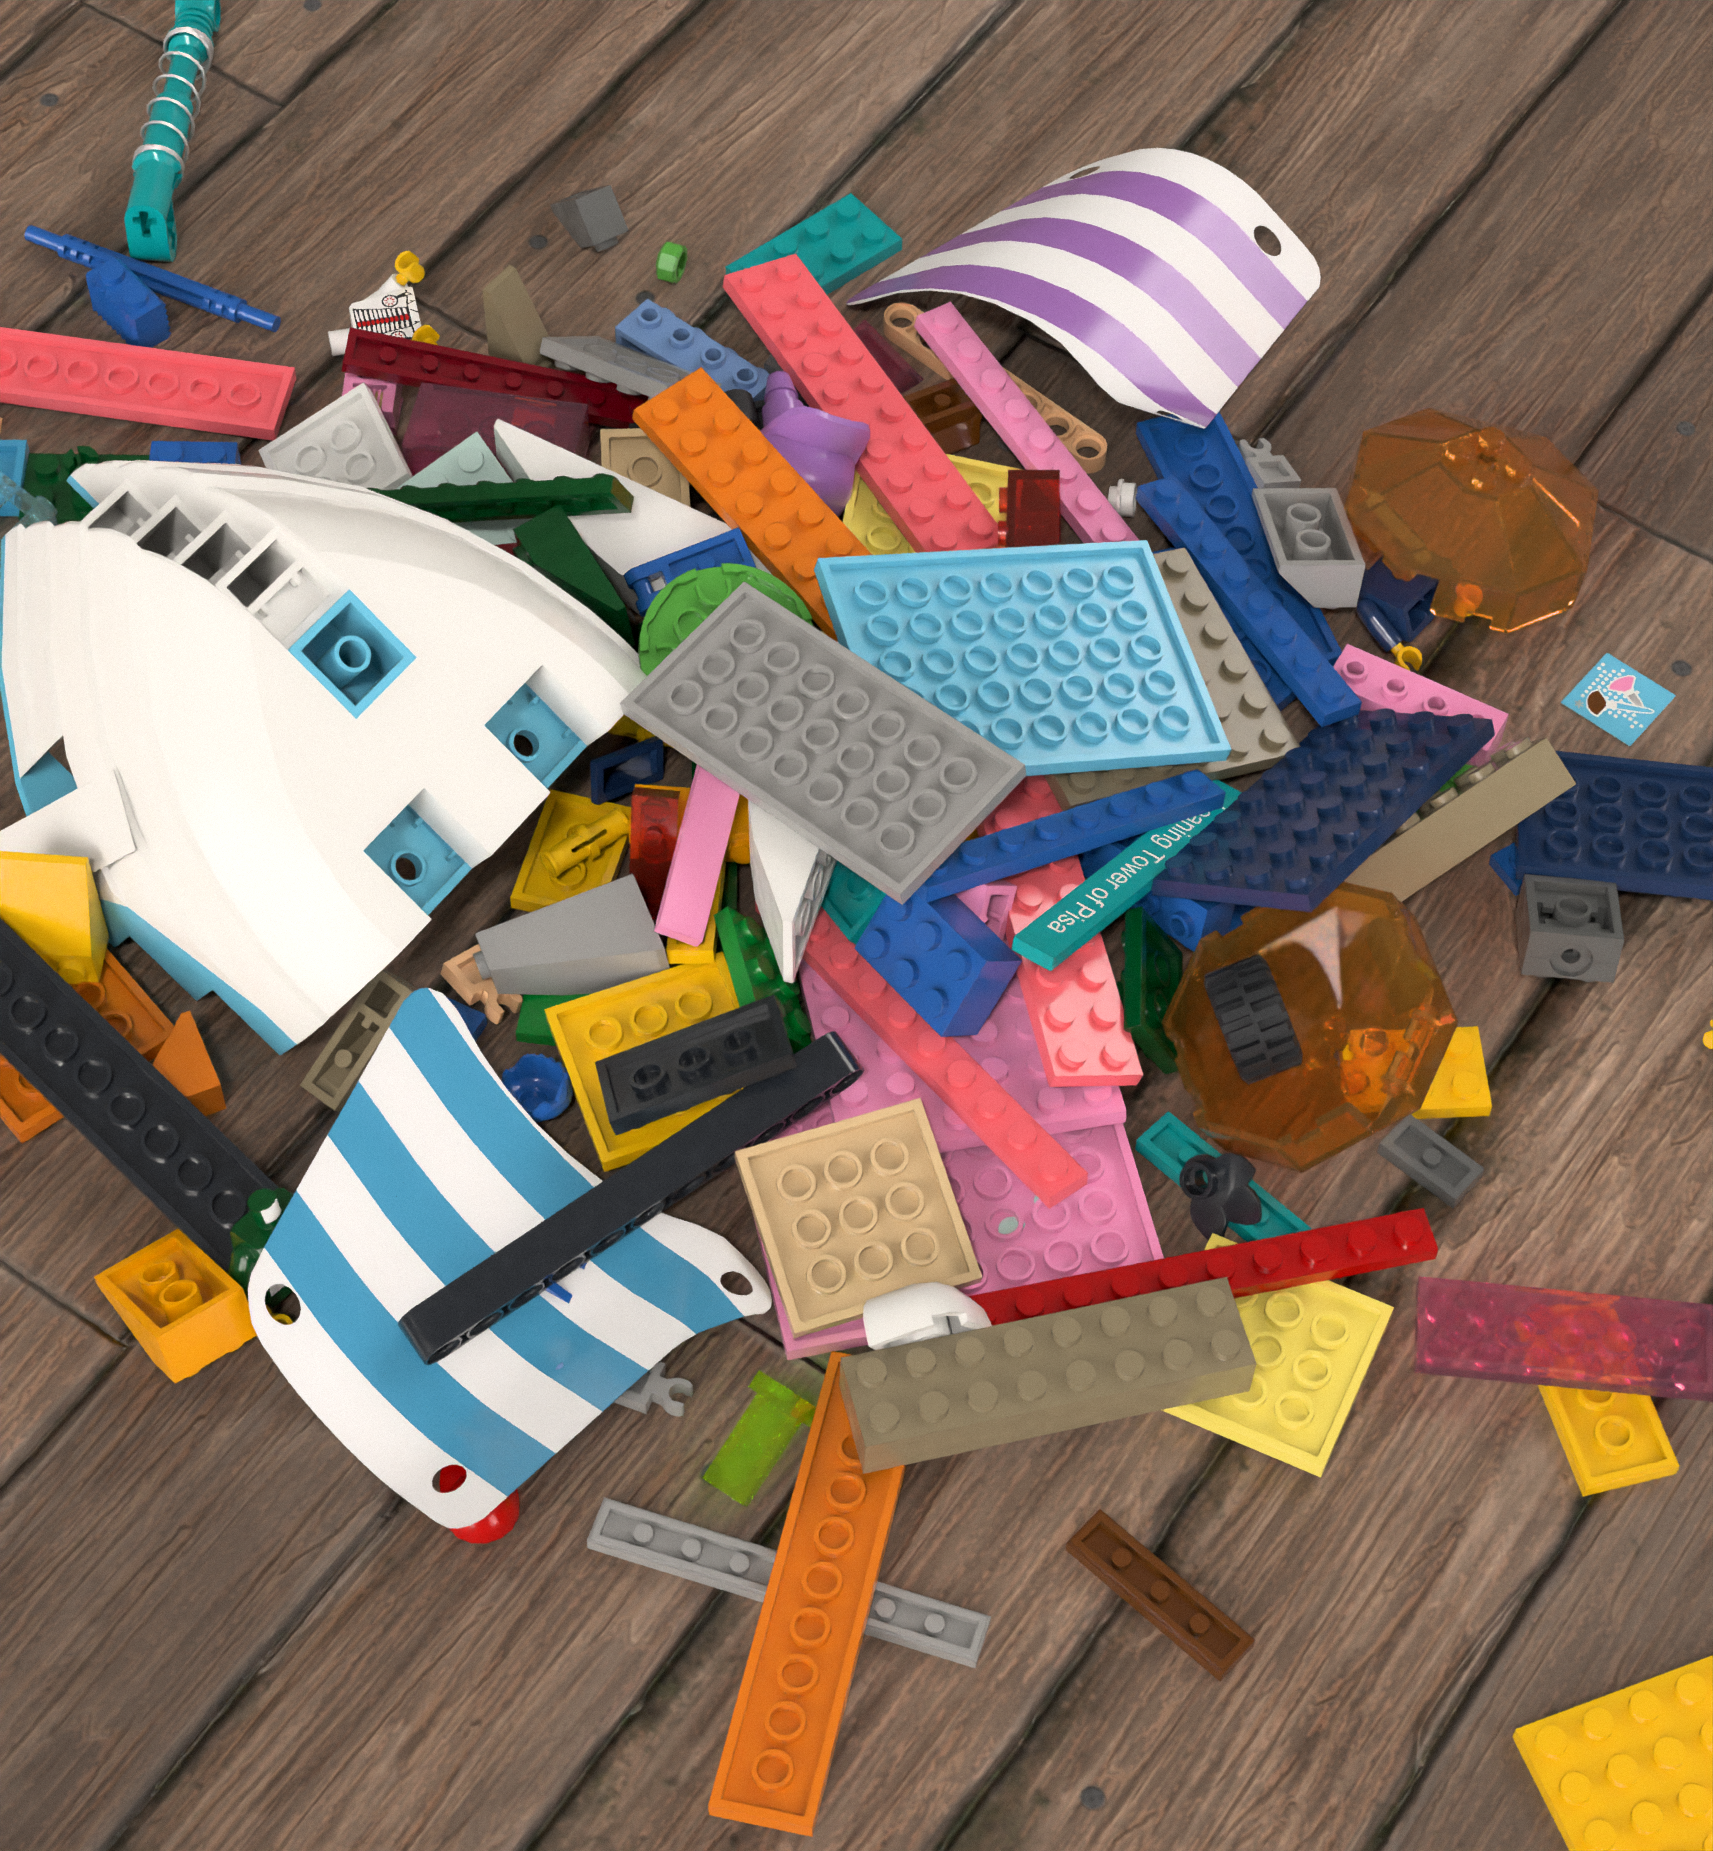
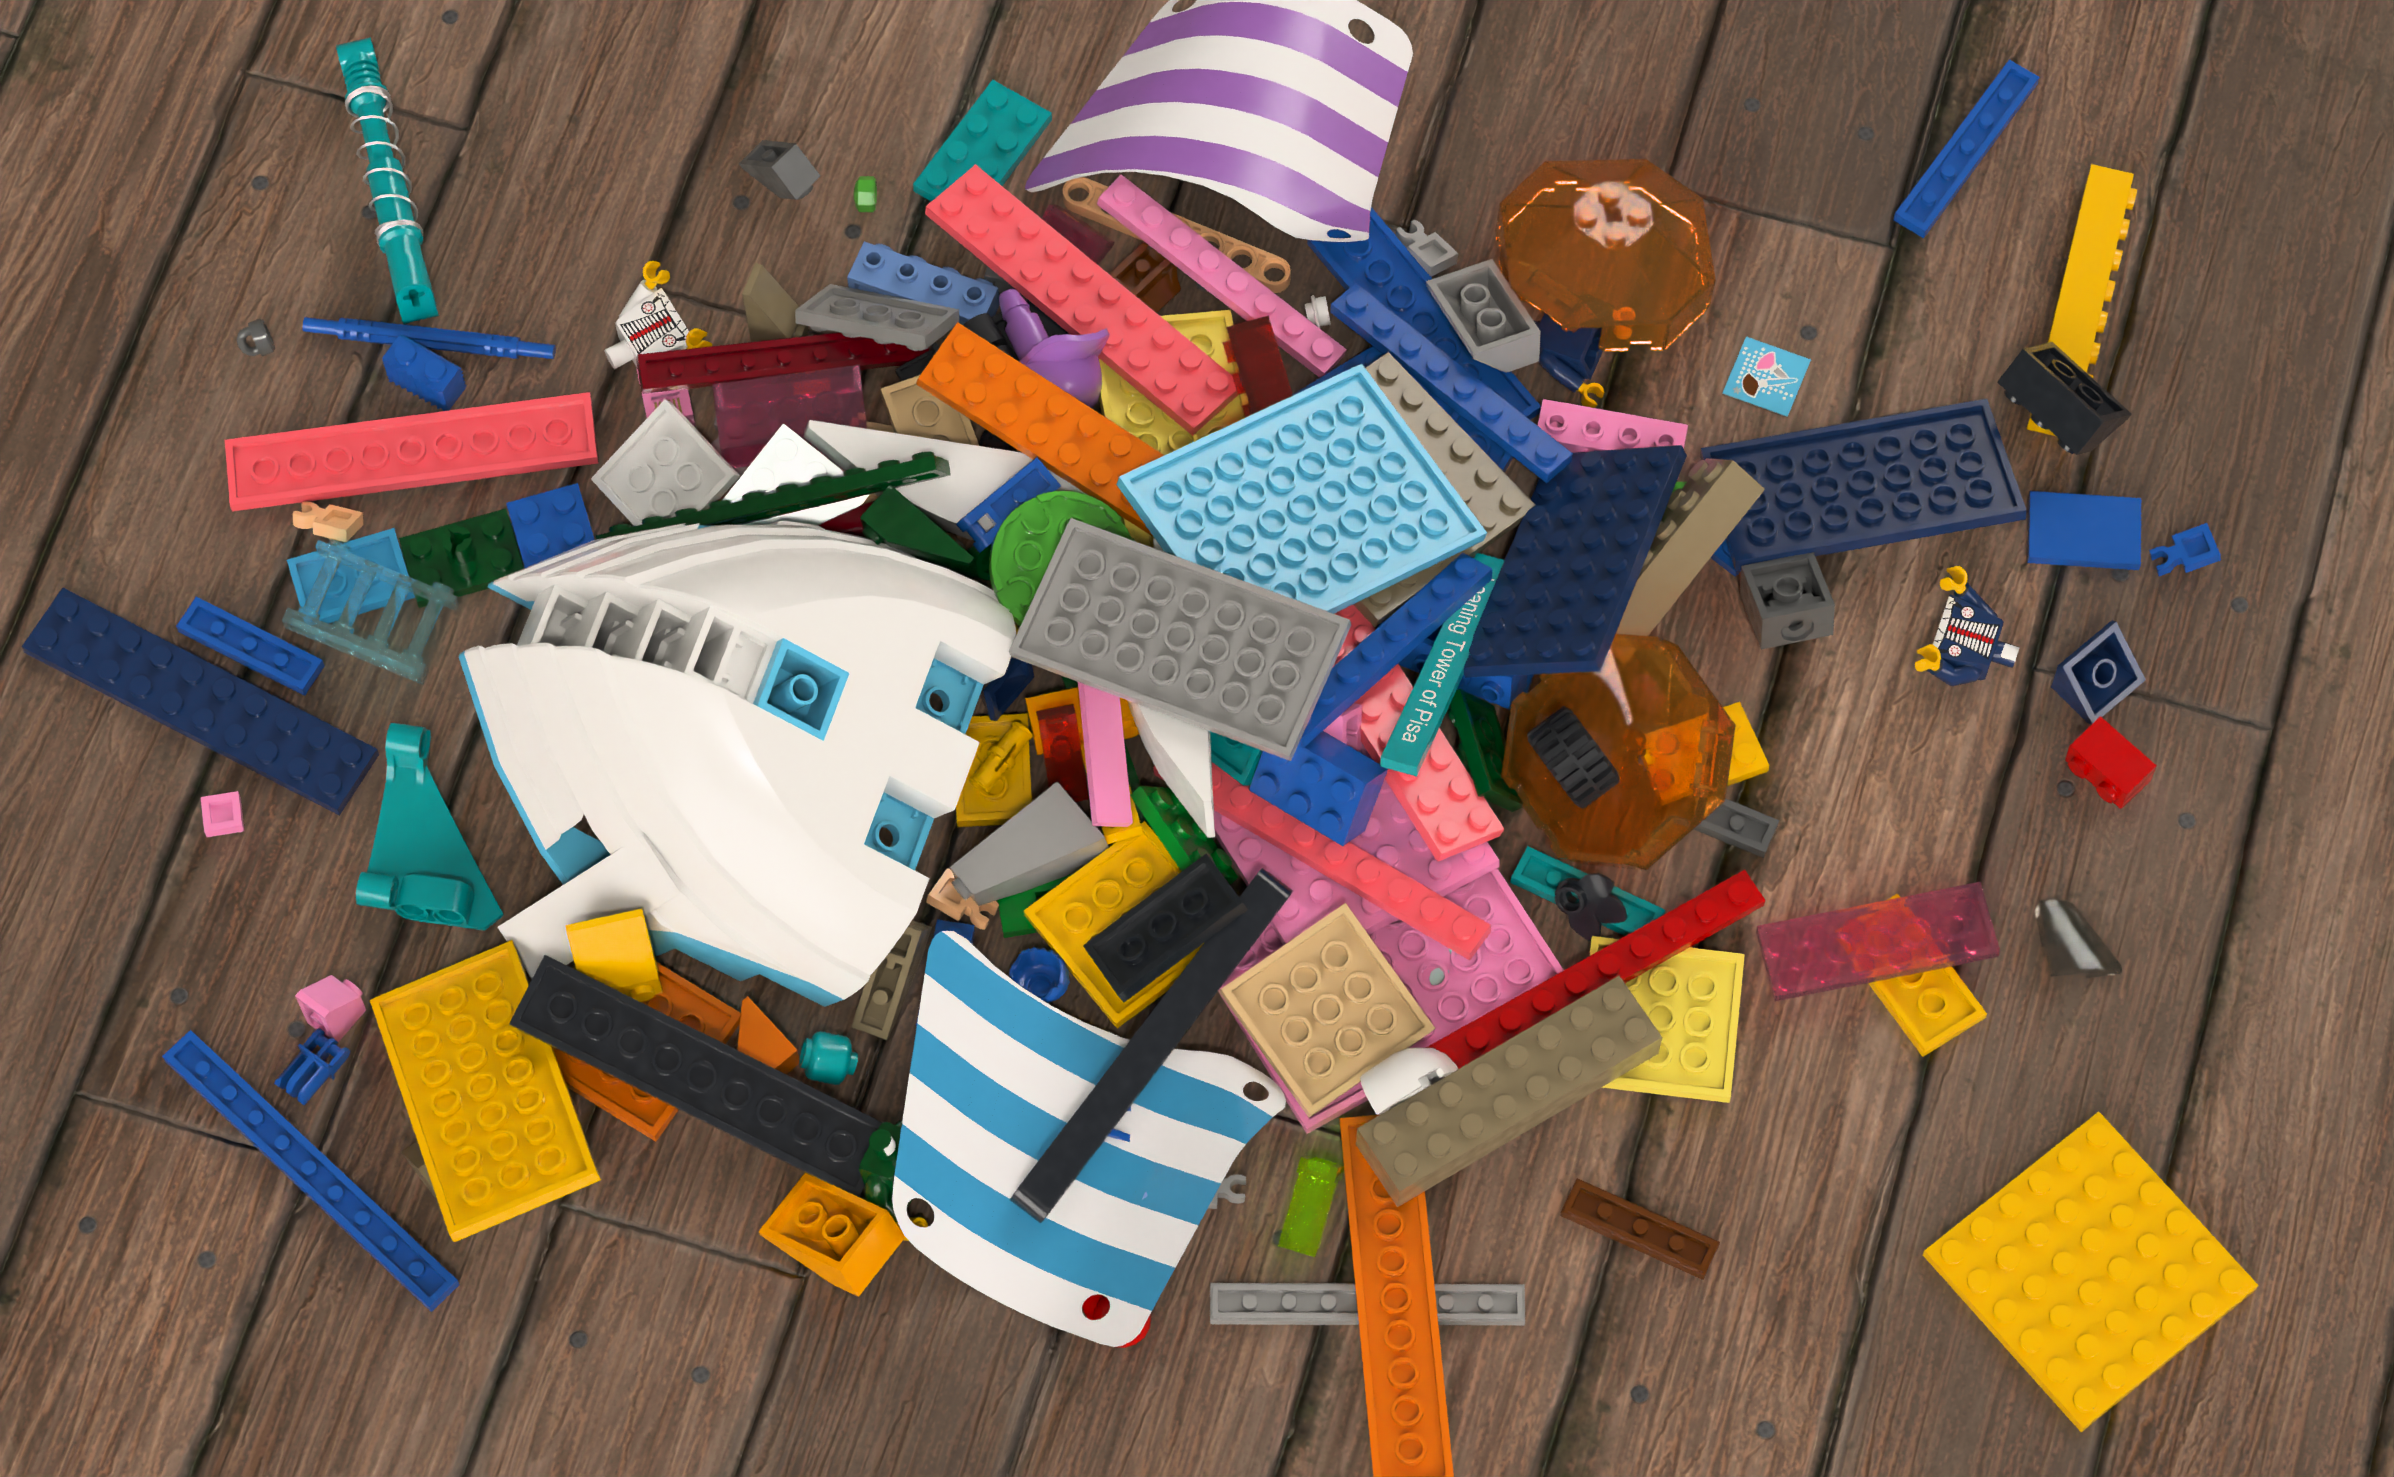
camera: 15 degrees left, 10 degrees up
(255, 1107) = (827, 1058): none -> teal head

